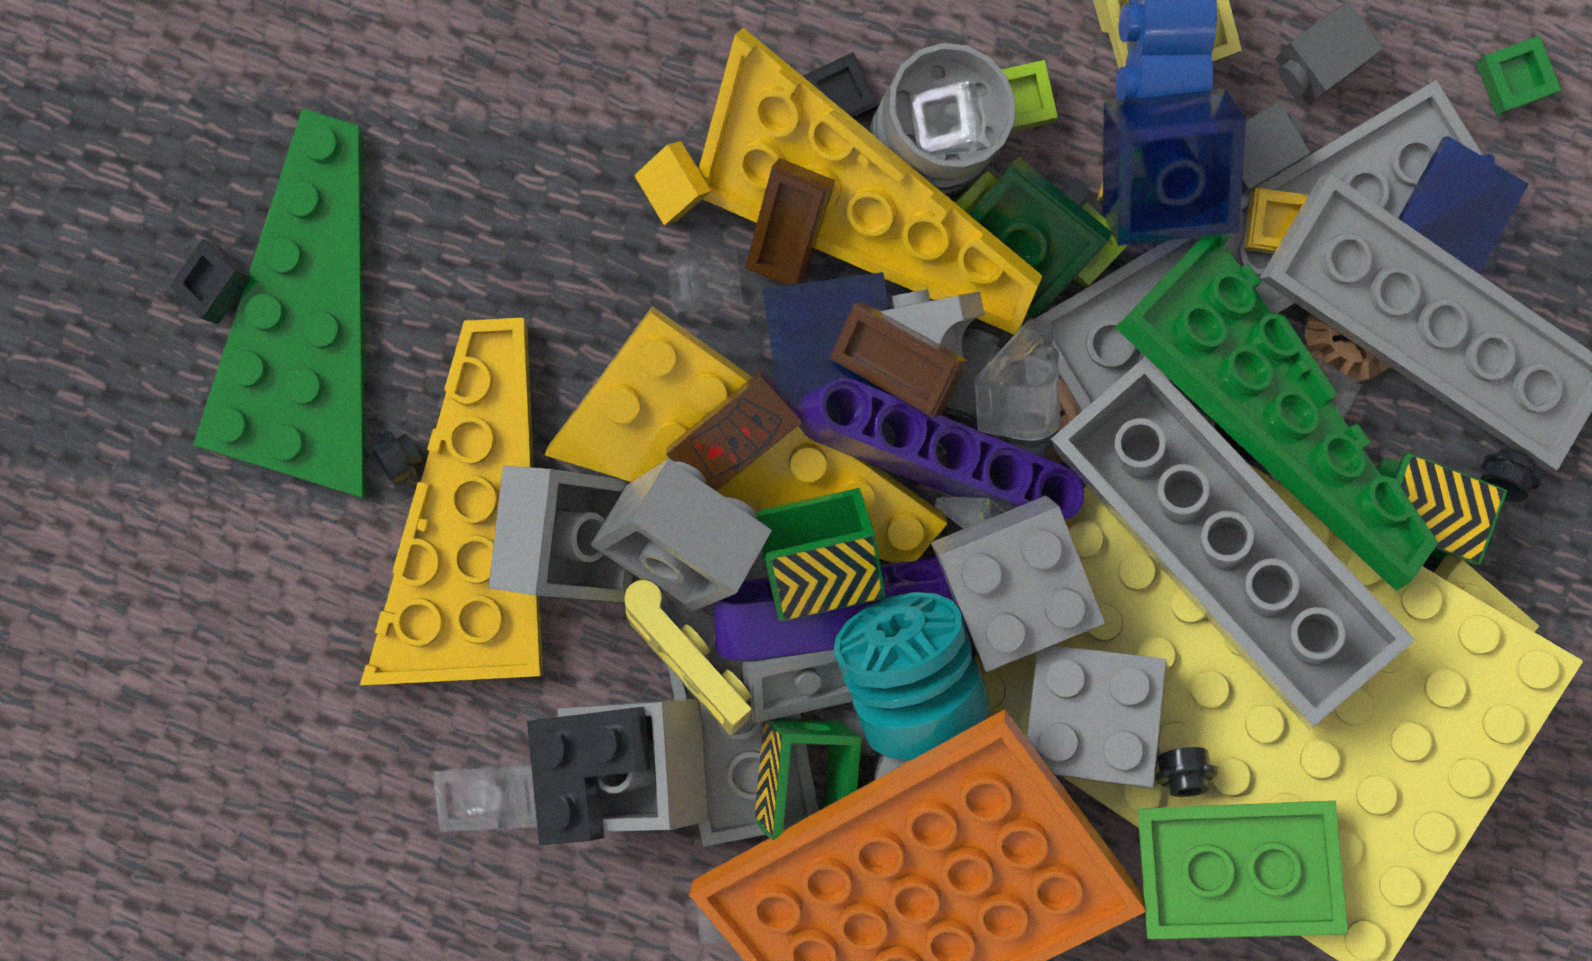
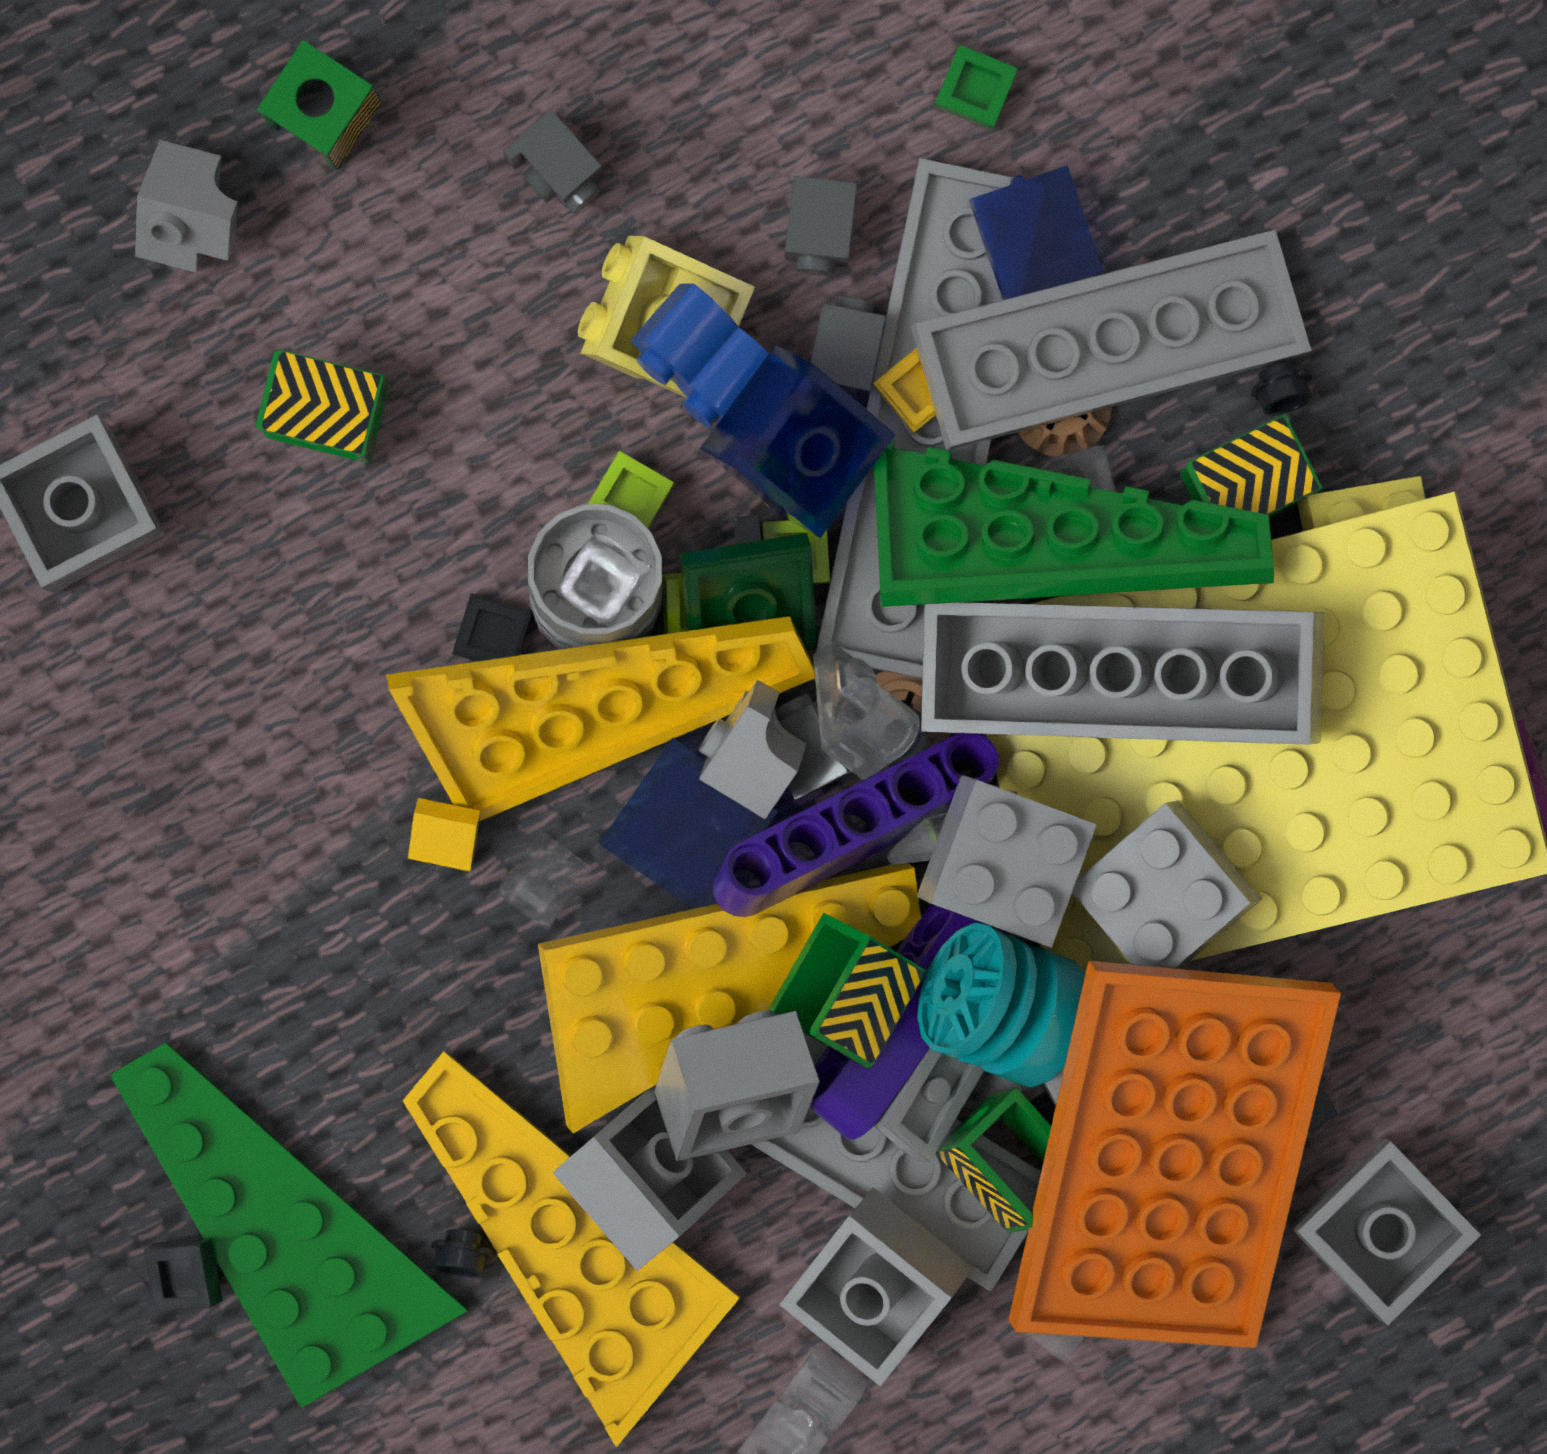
camera: 50 degrees left, 0 degrees up
(566, 764) = (826, 1328): black plate -> none
(685, 655) = (830, 1167): light yellow plate -> none
(736, 431) = (694, 968): reddish brown tile -> none
(789, 223) = (564, 774): reddish brown tile -> none
(898, 359) = (752, 793): reddish brown tile -> none
(1185, 771) = (1266, 864): black plate -> none
(1242, 870) = (1374, 892): bright green plate -> none

